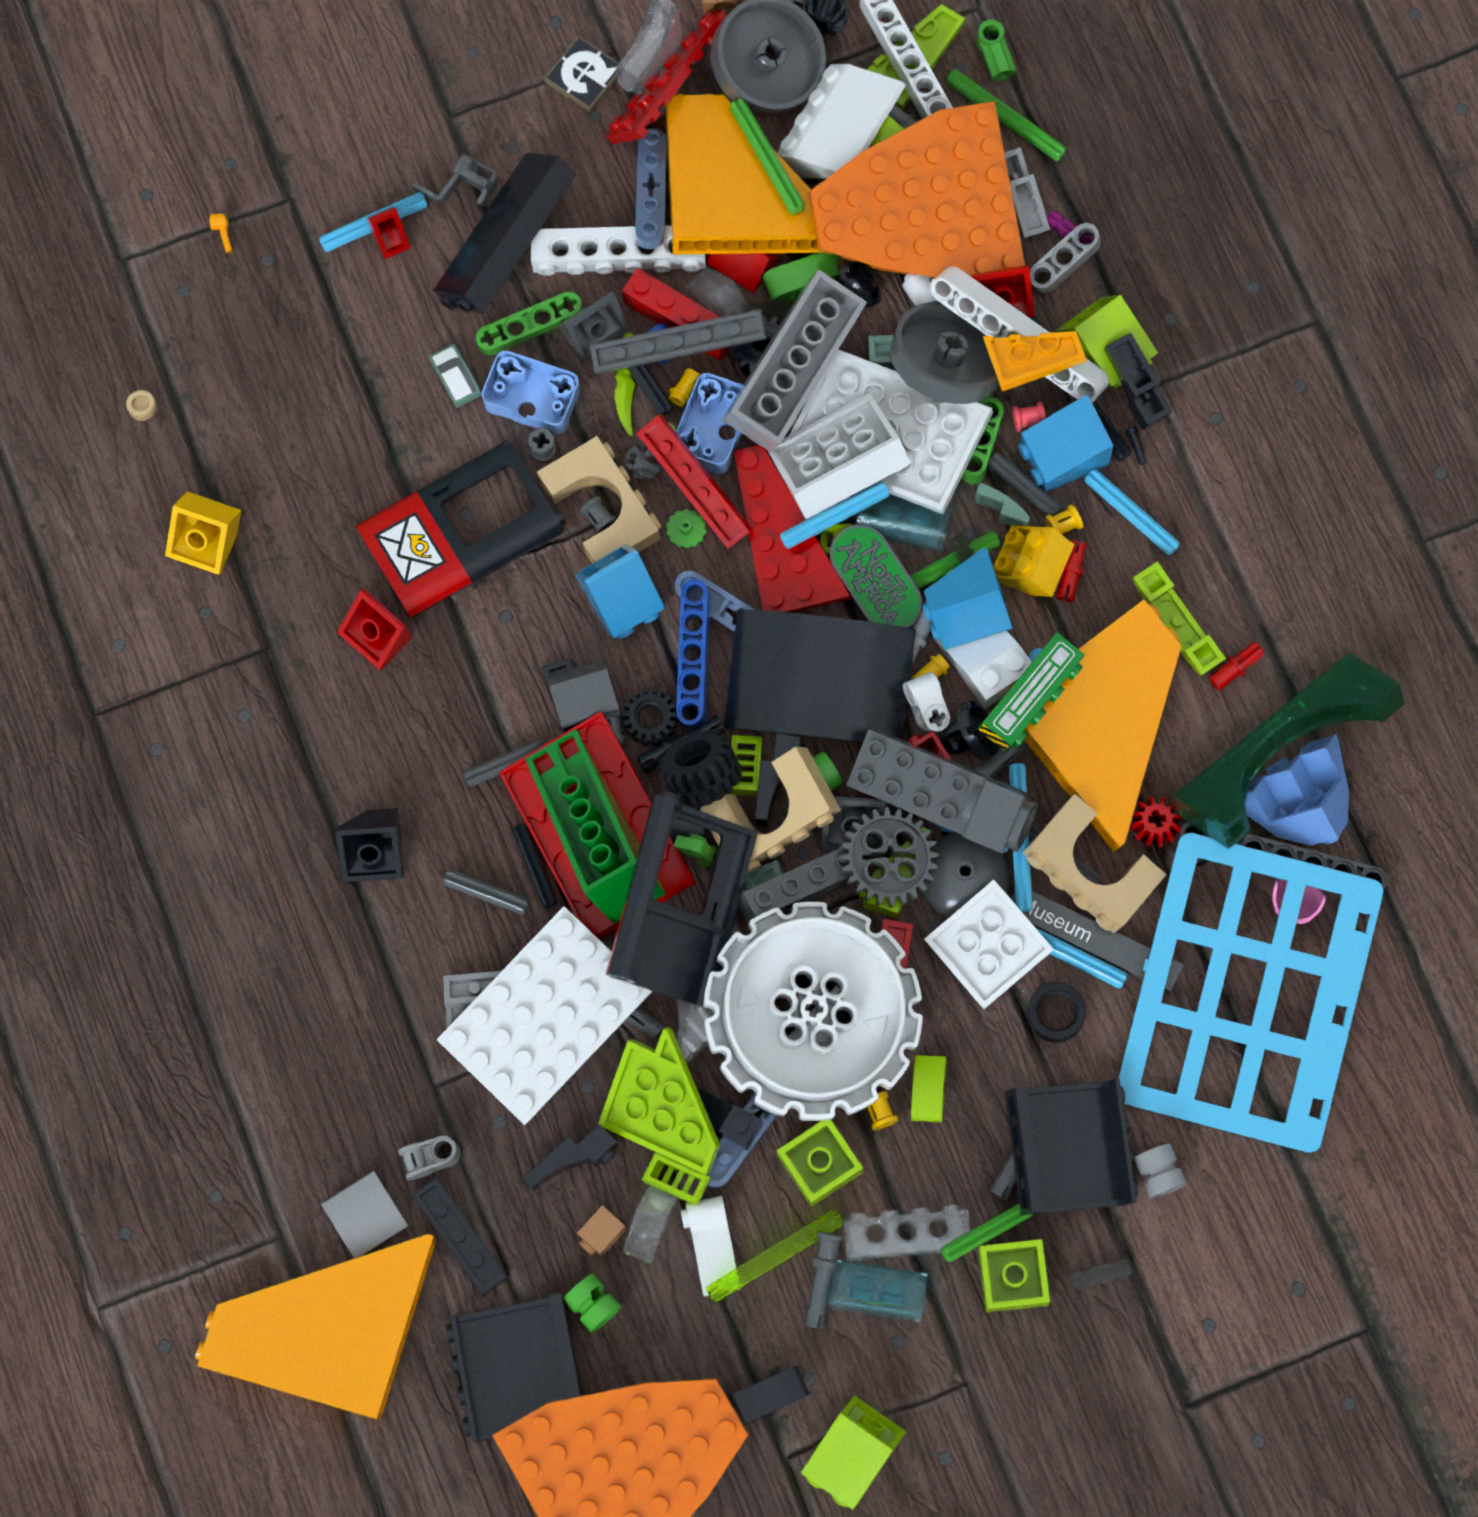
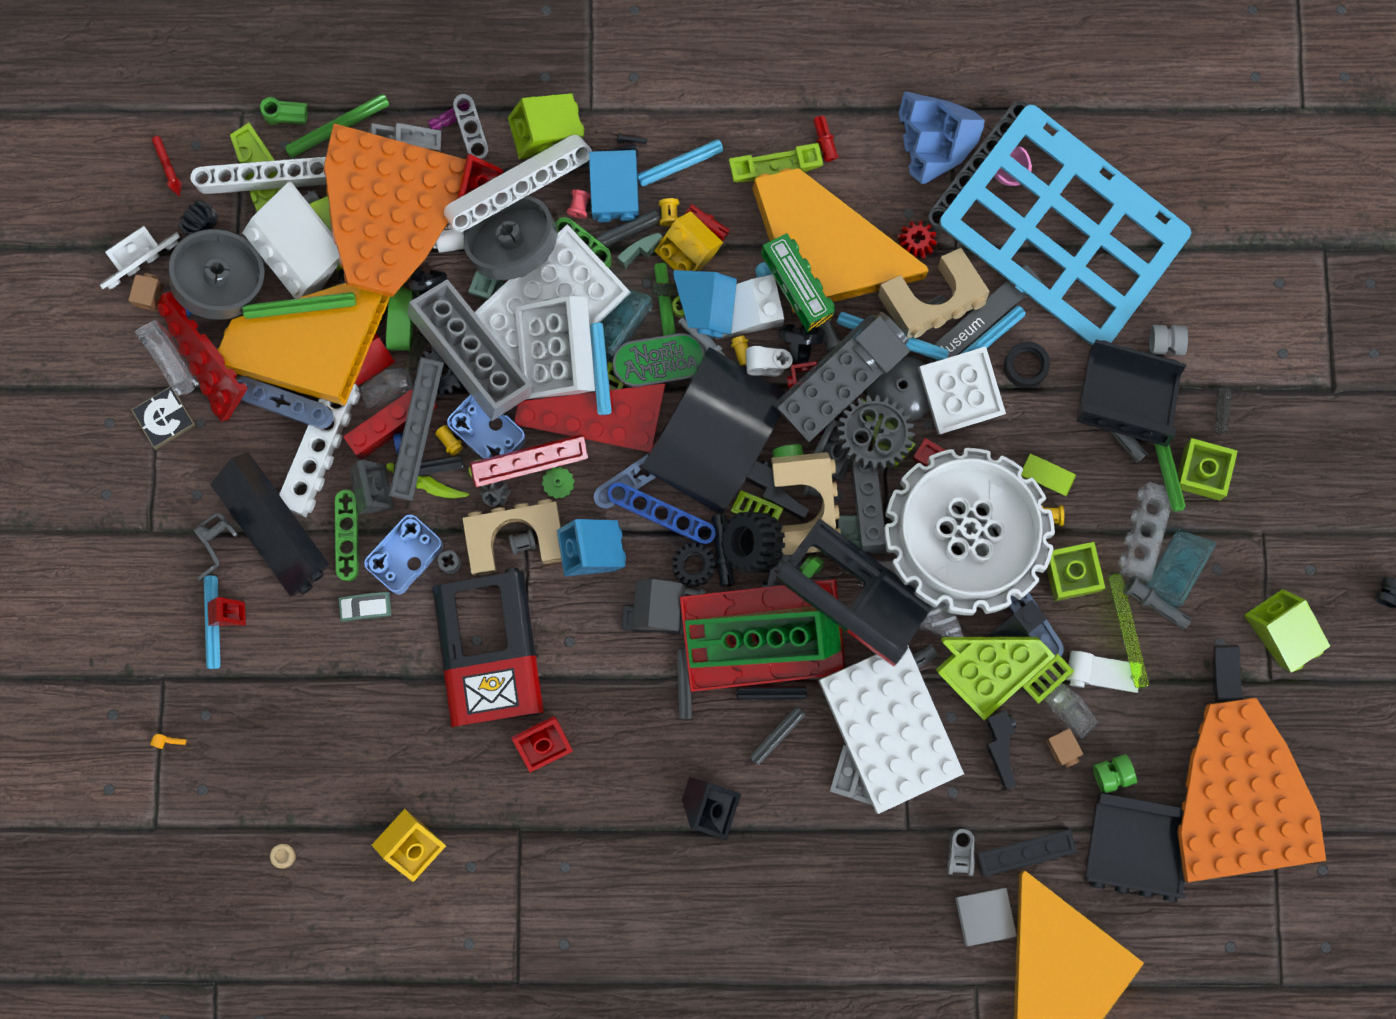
camera: 70 degrees left, 5 degrees up
(1032, 357) = (544, 179): light orange wing -> none
(1138, 381) = (589, 115): black slope -> none
(1342, 694) = (879, 74): clear green arch -> none

